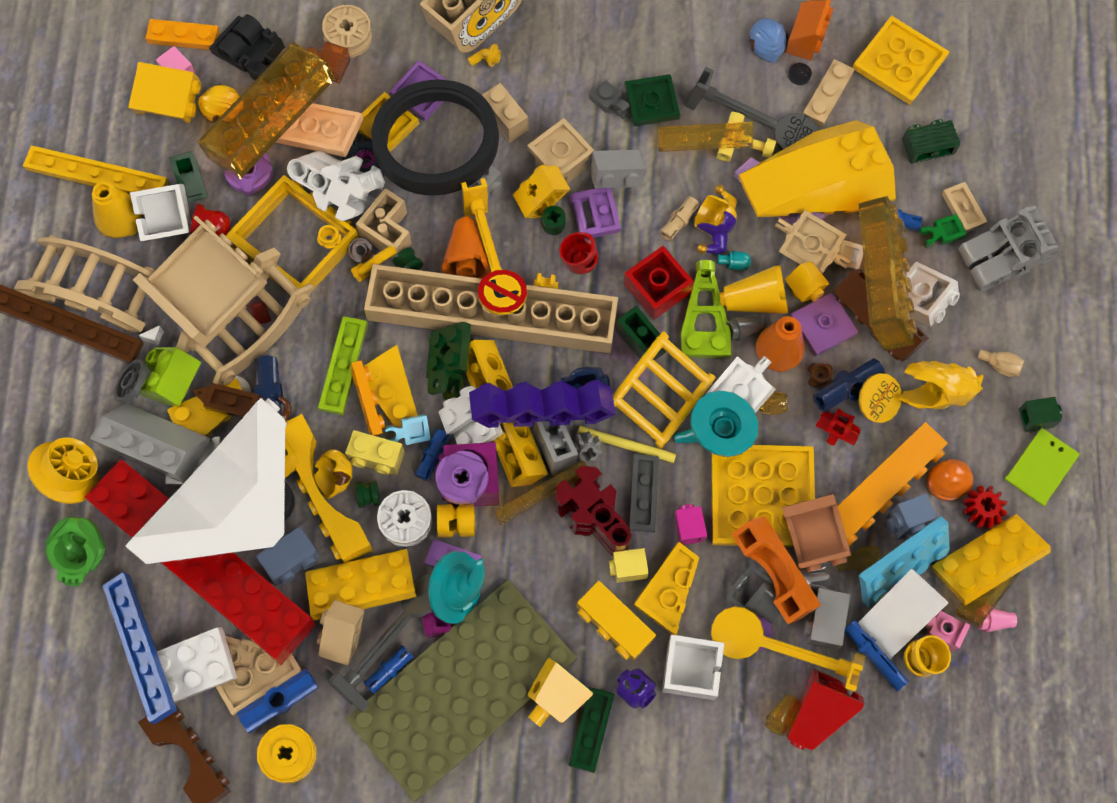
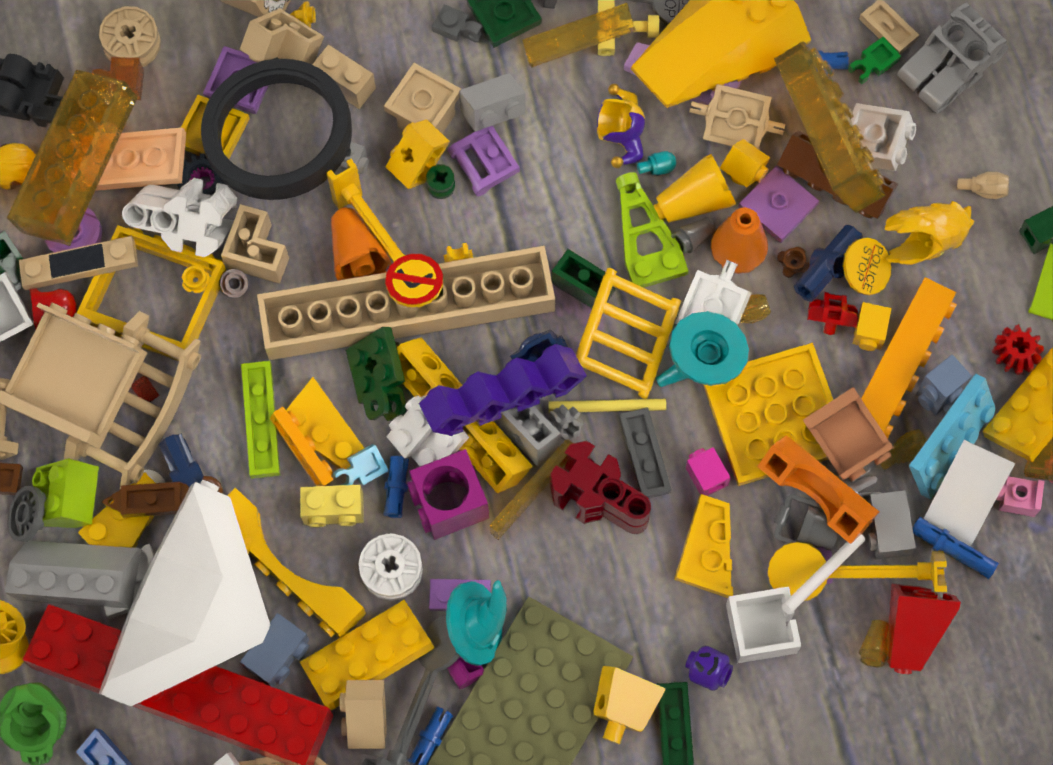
camera: 15 degrees left, 0 degrees up
(152, 336) = (30, 455): white piece -> none
(242, 195) = (78, 263): none -> tan plate
(333, 473) = (292, 542): yellow hair -> none
(362, 270) = (244, 306): yellow piece -> none
(367, 494) = (339, 553): dark green wheel -> none
(407, 259) = (291, 277): dark green wheel -> none
(456, 464) = (431, 487): medium lavender plate -> none
(464, 64) = (281, 37): none -> tan brick
(465, 520) = (456, 542): yellow wheel -> none
(576, 245) = (483, 211): red helmet -> none
(615, 622) = (661, 603): yellow brick -> none
(629, 565) = (656, 537): light yellow brick -> none
(658, 282) = (582, 215): red brick -> none
(679, 218) = (580, 136): tan pin -> none
(754, 642) = (821, 575): none -> white bar
(853, 252) = (784, 114): plate -> none
(867, 449) = (871, 326): none -> yellow brick
(927, 650) = (1009, 530): yellow helmet -> none
(949, 480) = (971, 332): orange hat -> none

